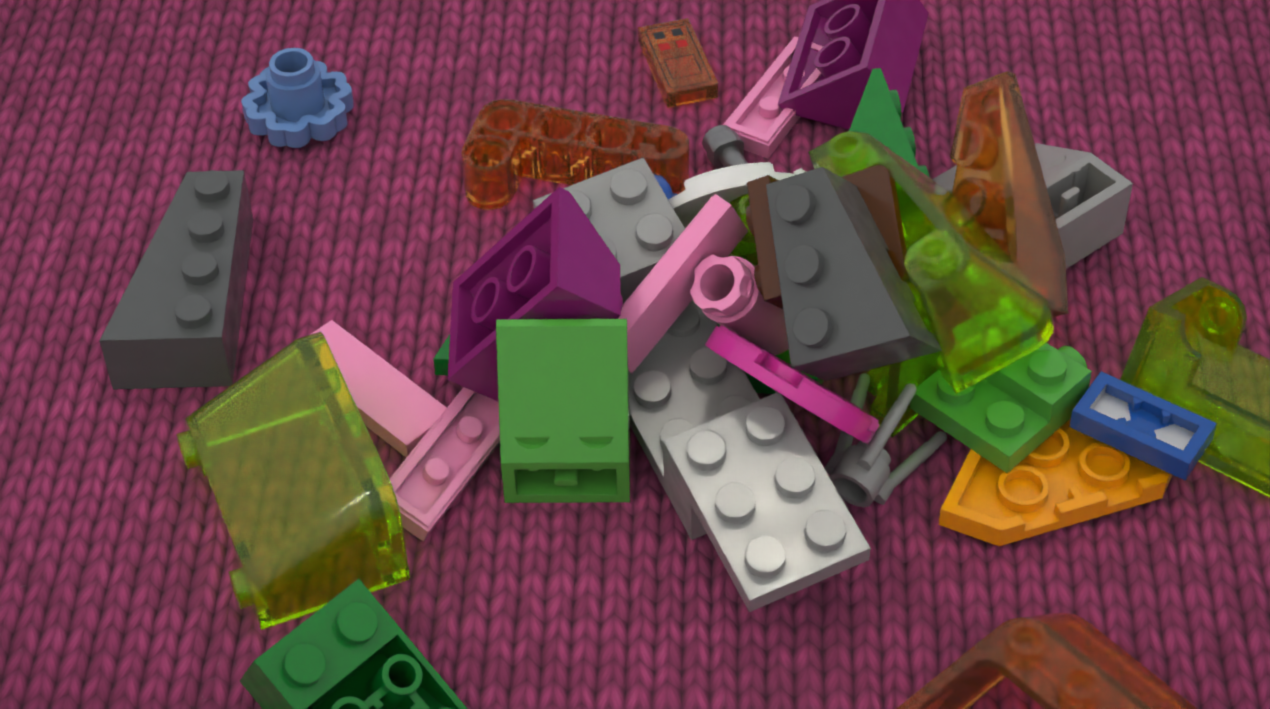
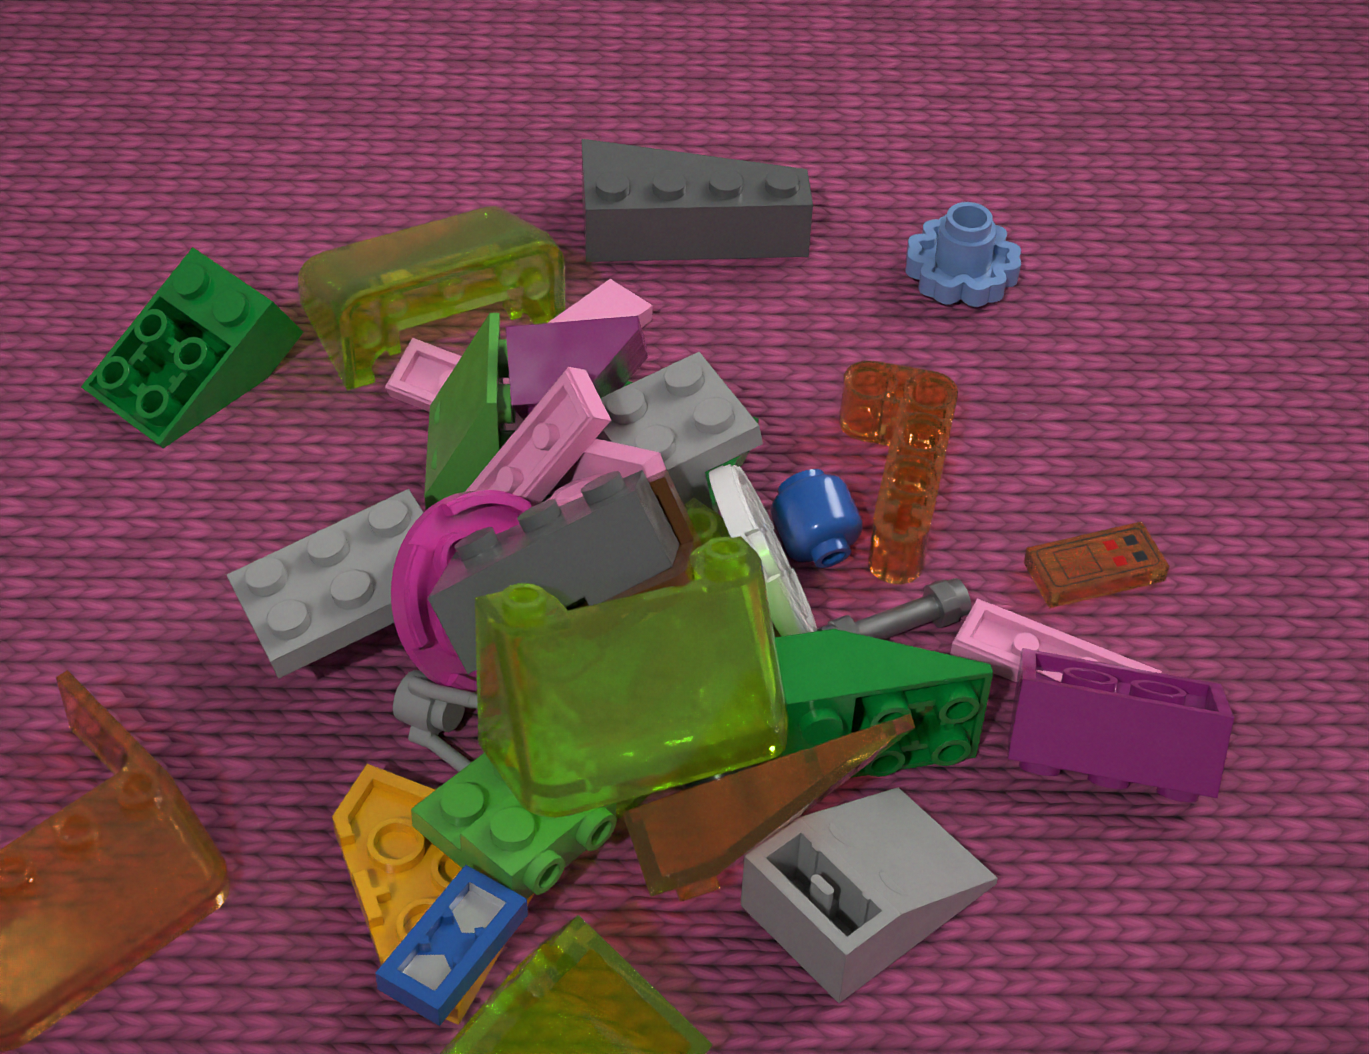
camera: 85 degrees right, 0 degrees up
(660, 322) = (547, 440): none -> bright pink tile

